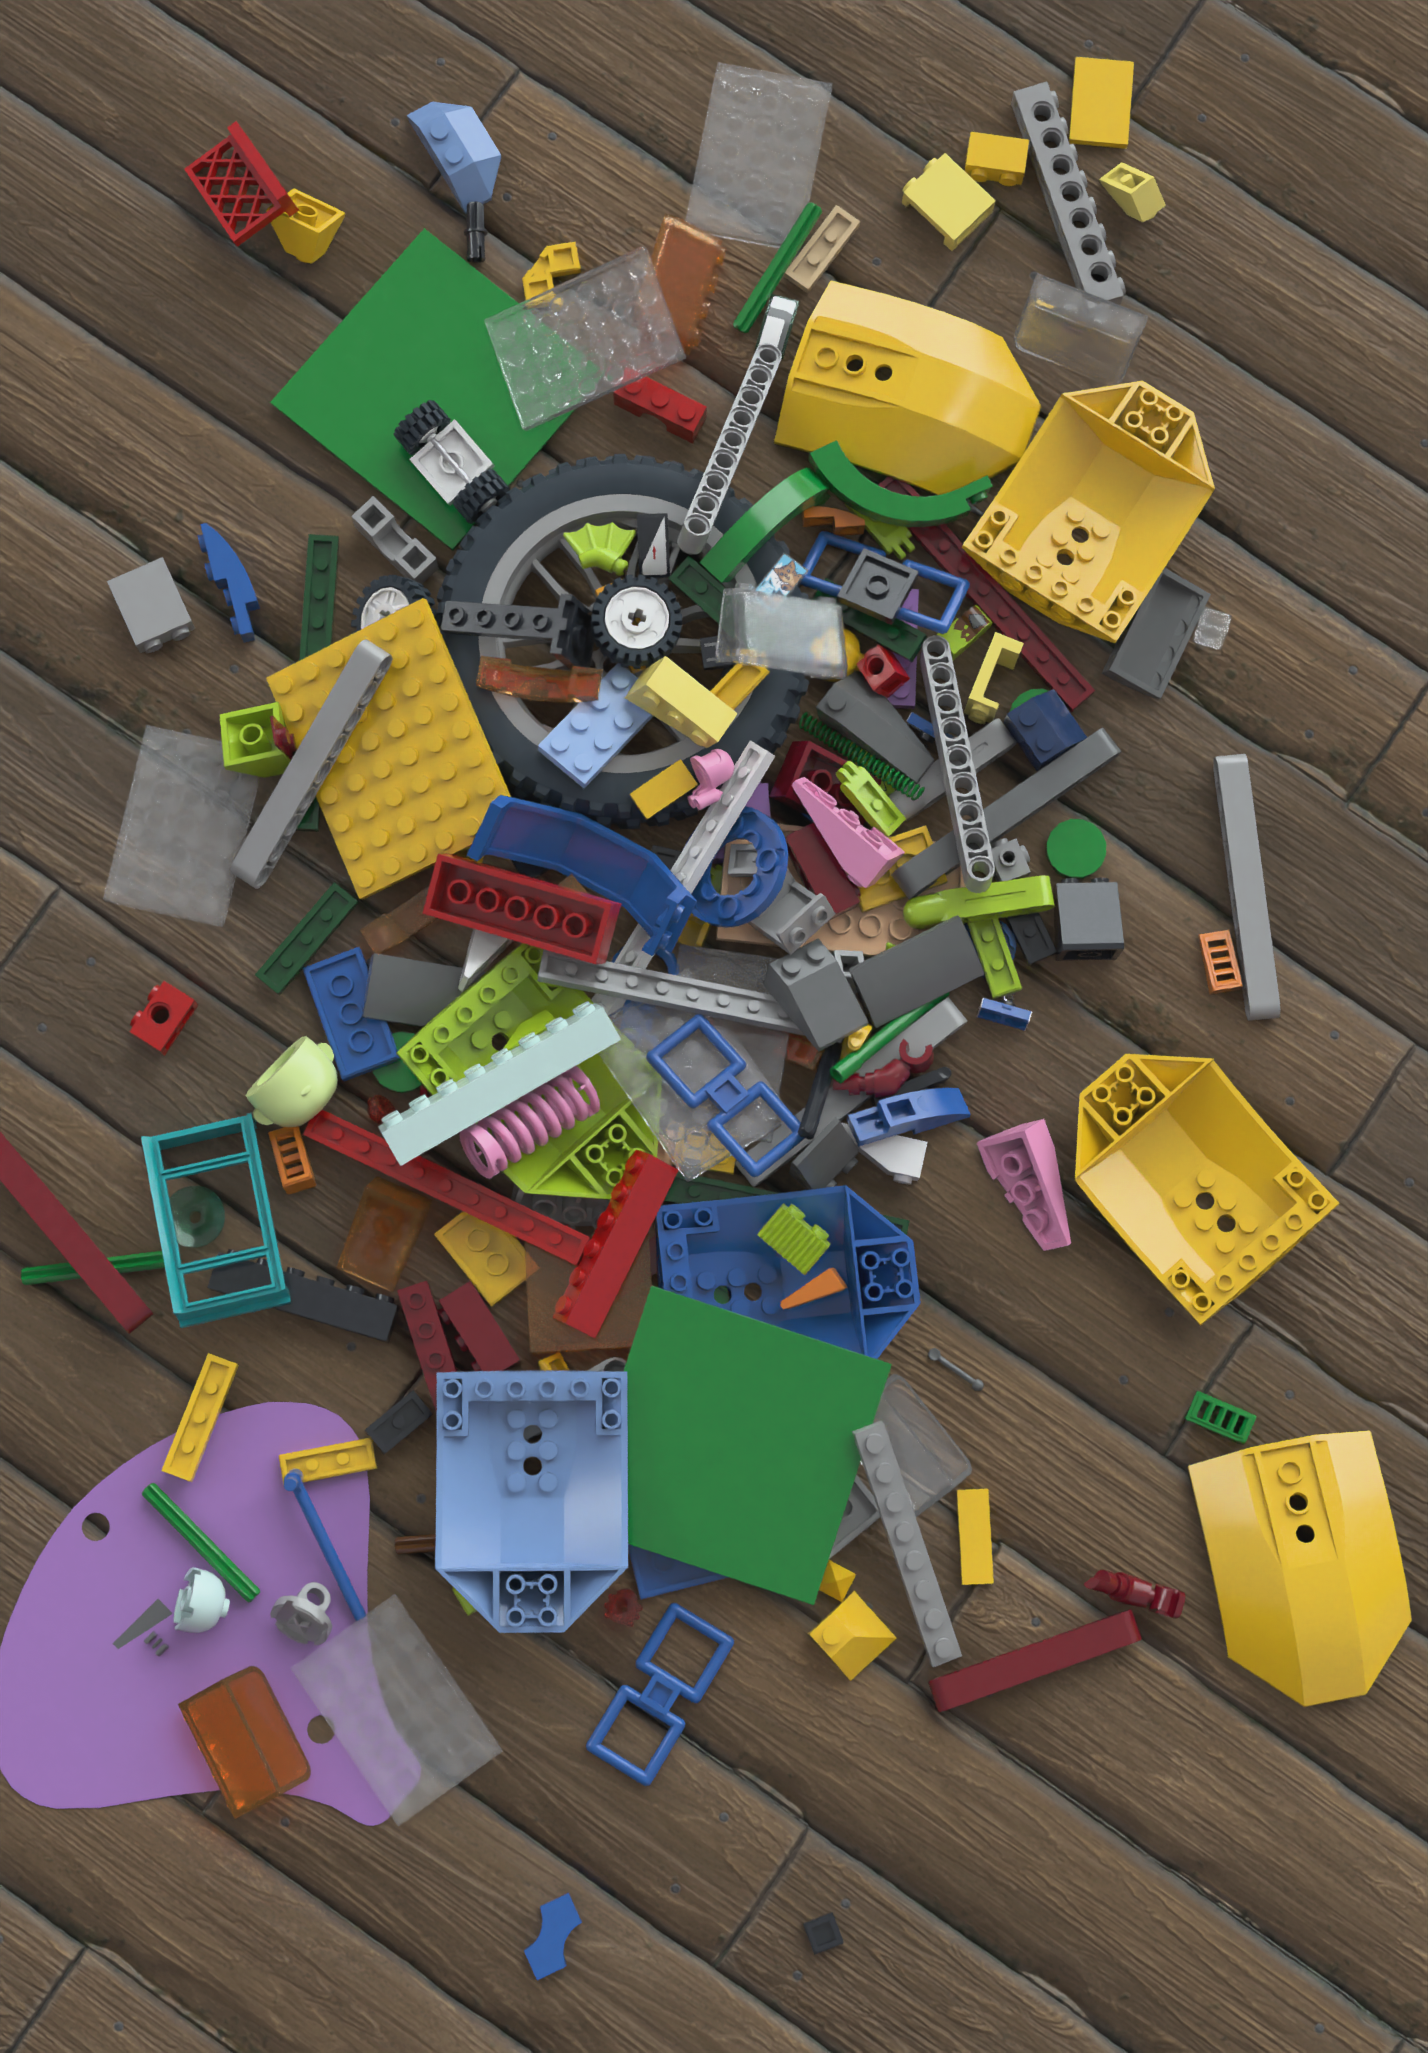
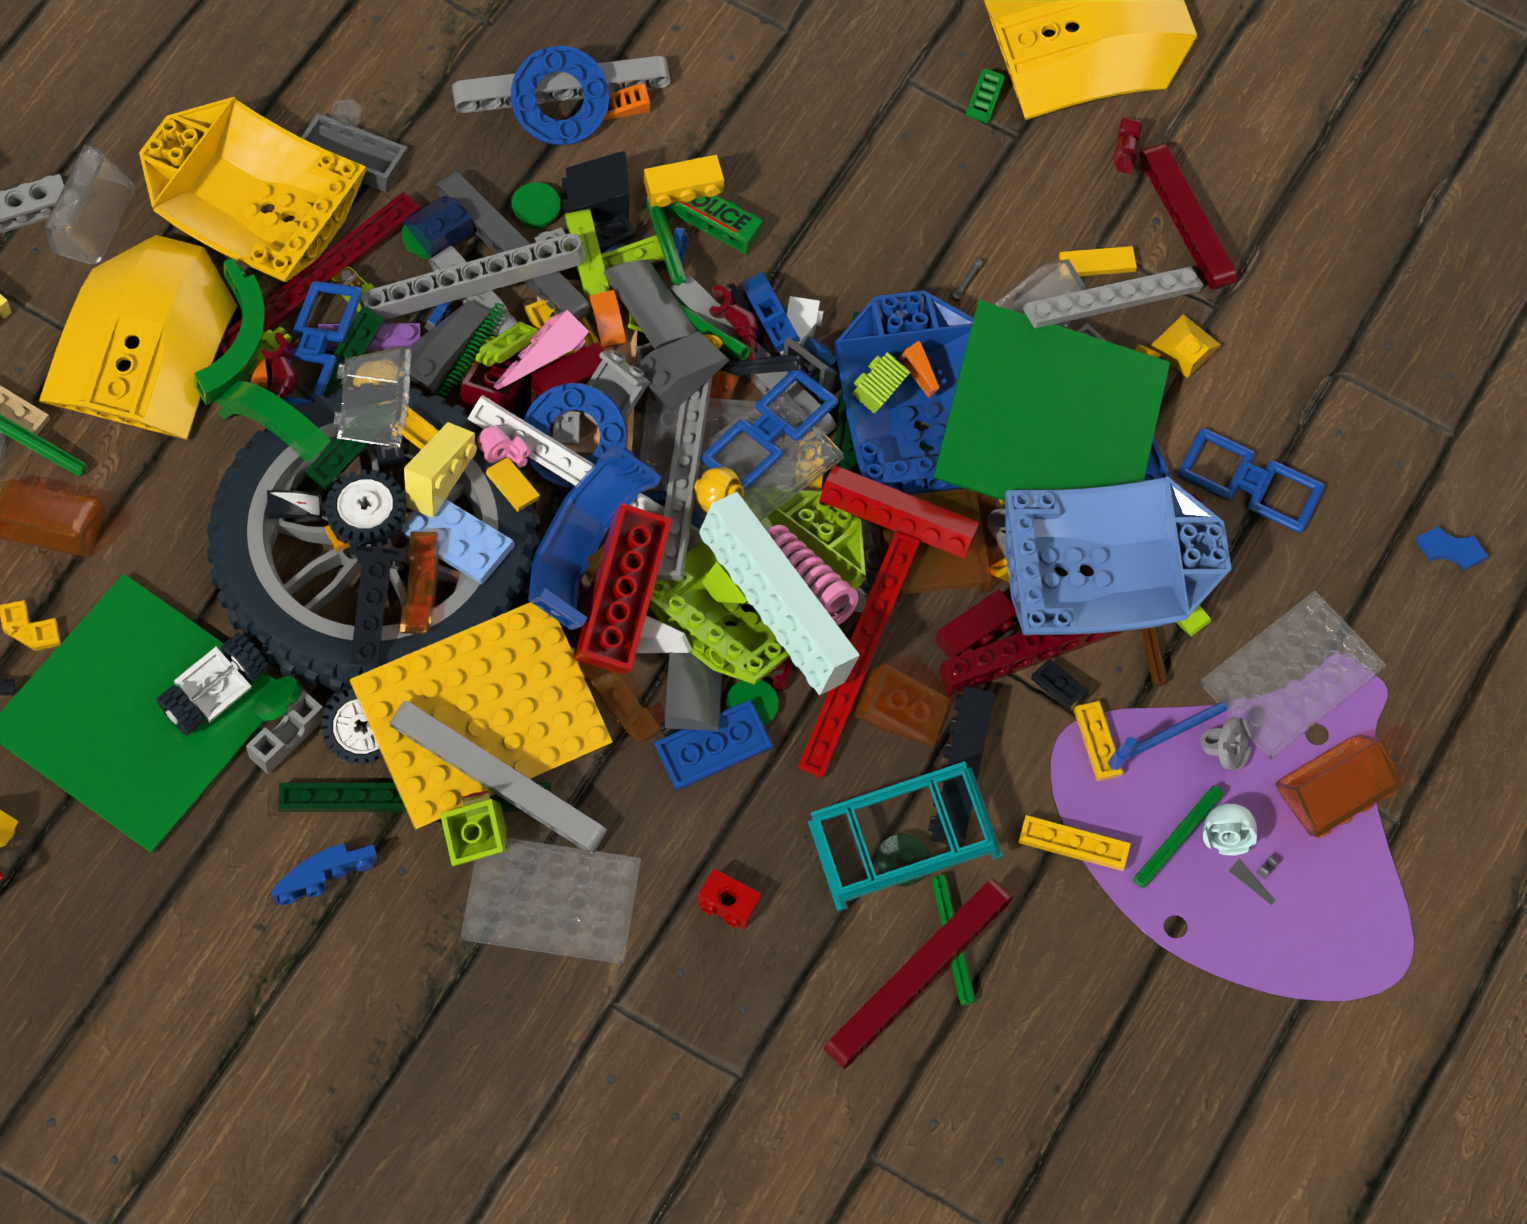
camera: 95 degrees left, 15 degrees down
(151, 606) = (348, 937): light grey panel -> none
(295, 1085) = (781, 781): yellowish green piece -> none
(299, 1182) = (848, 774): orange slope -> none
(306, 939) = (649, 786): dark green plate -> none
(378, 1108) = (797, 716): clear red animal -> none
(430, 530) = (276, 697): none -> green tile
(486, 1255) = (910, 629): yellow tile -> none
(585, 338) = (99, 576): clear plate -> none
(601, 546) = (296, 544): lime arm -> none
(646, 1027) = (715, 485): none -> yellow plant
(679, 413) = (146, 538): red arch -> none
(729, 449) = (204, 450): light grey beam -> none
(778, 322) = (82, 439): slope -> none
(782, 577) = (322, 401): tile -> none
(823, 1933) = (1415, 357): black tile -> none
(841, 1170) = (821, 351): none -> blue tile
(844, 544) = (283, 374): none -> dark red piece
(877, 586) = (323, 338): plate -> none
(892, 675) = (397, 331): red brick -> none
(896, 917) = (607, 319): none -> orange slope
(1002, 652) = (391, 263): light yellow panel -> none
(1013, 997) = (667, 244): none -> green axle
(1029, 1172) = (806, 230): bright pink wedge -> none
(1053, 1058) = (720, 220): none -> green brick
(1085, 1020) = (683, 181): none -> yellow brick
(1179, 1128) = (764, 117): yellow wedge -> none
(1190, 849) = (584, 70): none -> blue plate

